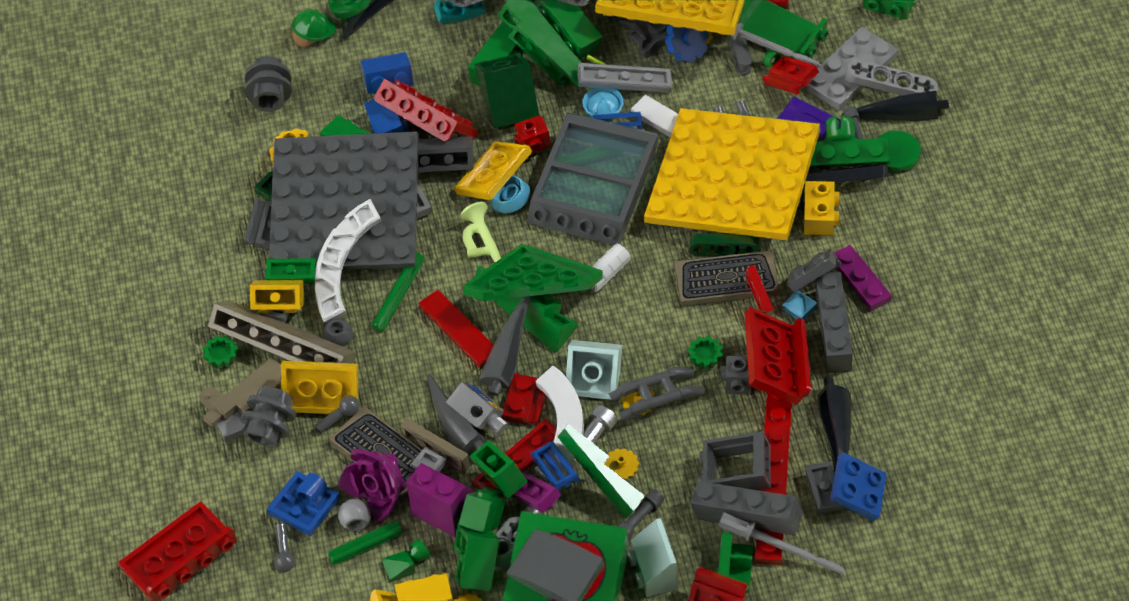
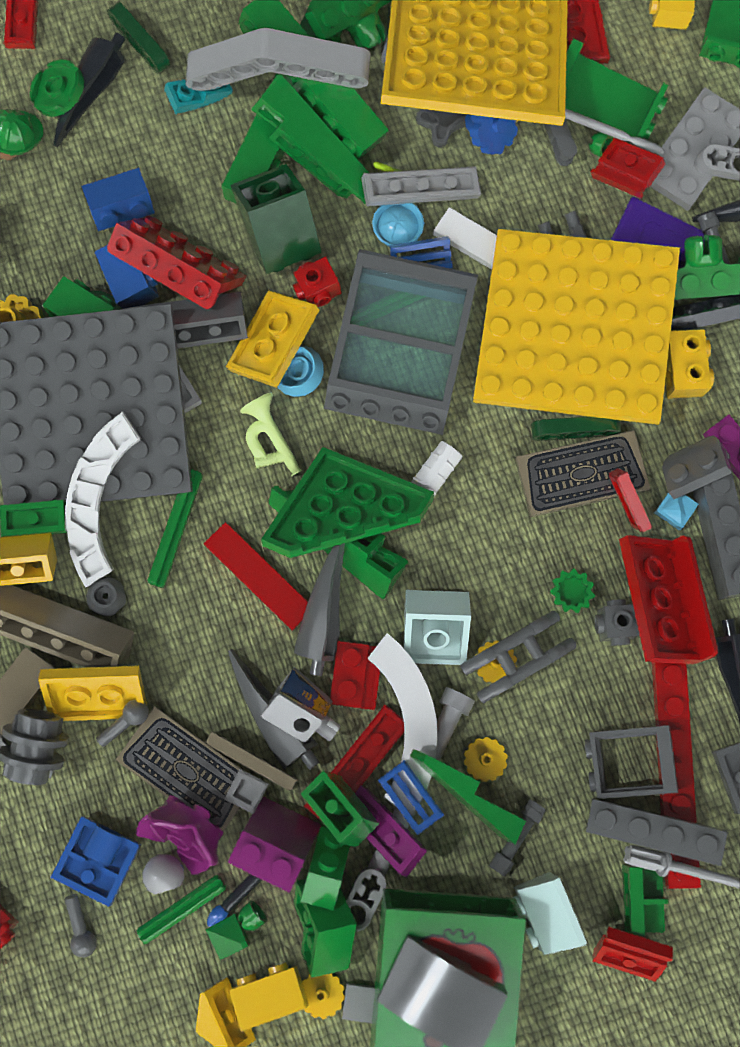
camera: 15 degrees left, 25 degrees up
(409, 538) = (234, 898): none -> black piece

